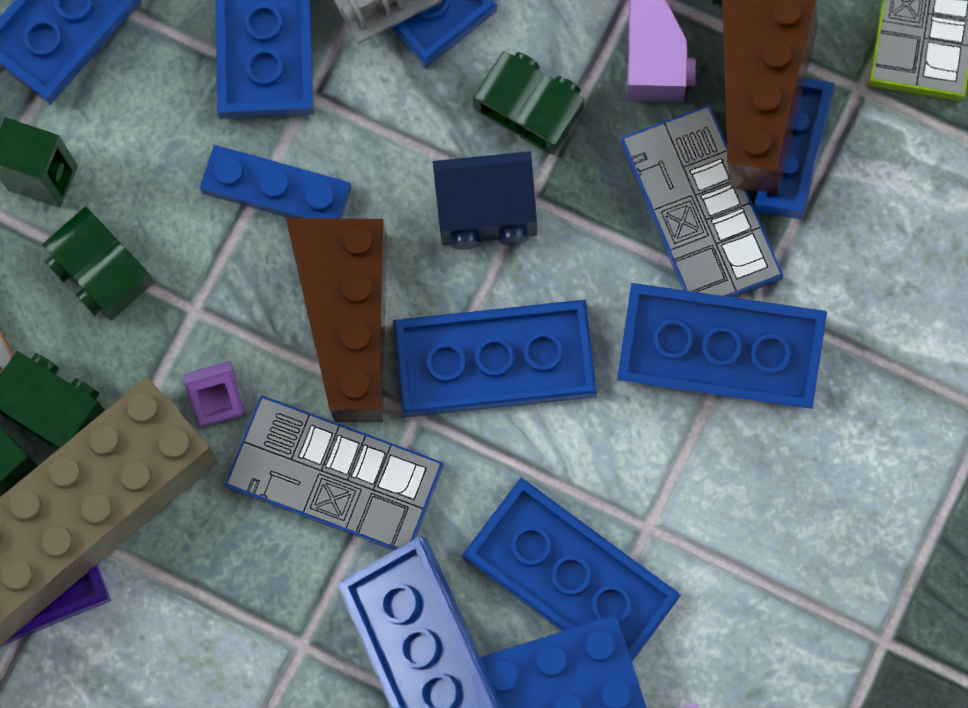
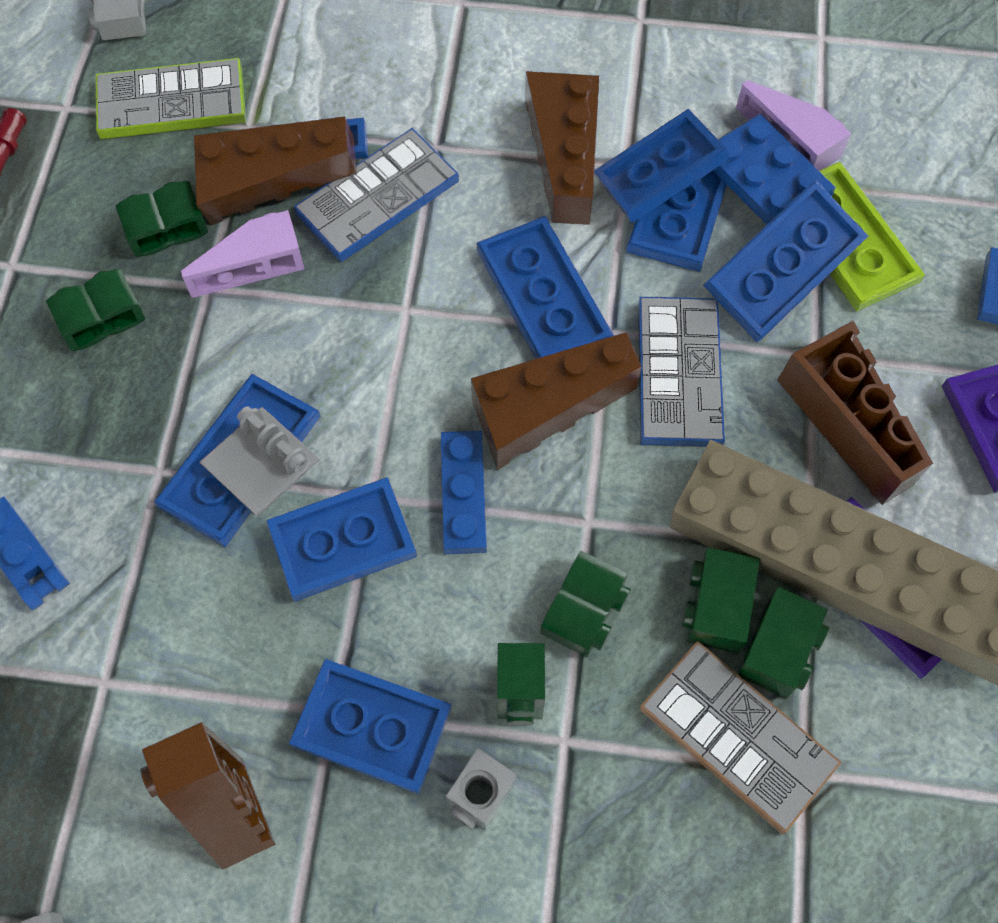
camera: 115 degrees left, 10 degrees down
(211, 637) = (856, 412): none -> reddish brown wedge
(214, 394) = (651, 480): medium lavender slope -> none
(485, 199) = (426, 320): dark blue slope -> none
(529, 101) = (329, 323): dark green brick -> none
(607, 549) = (661, 165): none -> blue plate
(694, 452) = (564, 131): none -> reddish brown wedge
(722, 345) = (480, 146): blue plate -> none

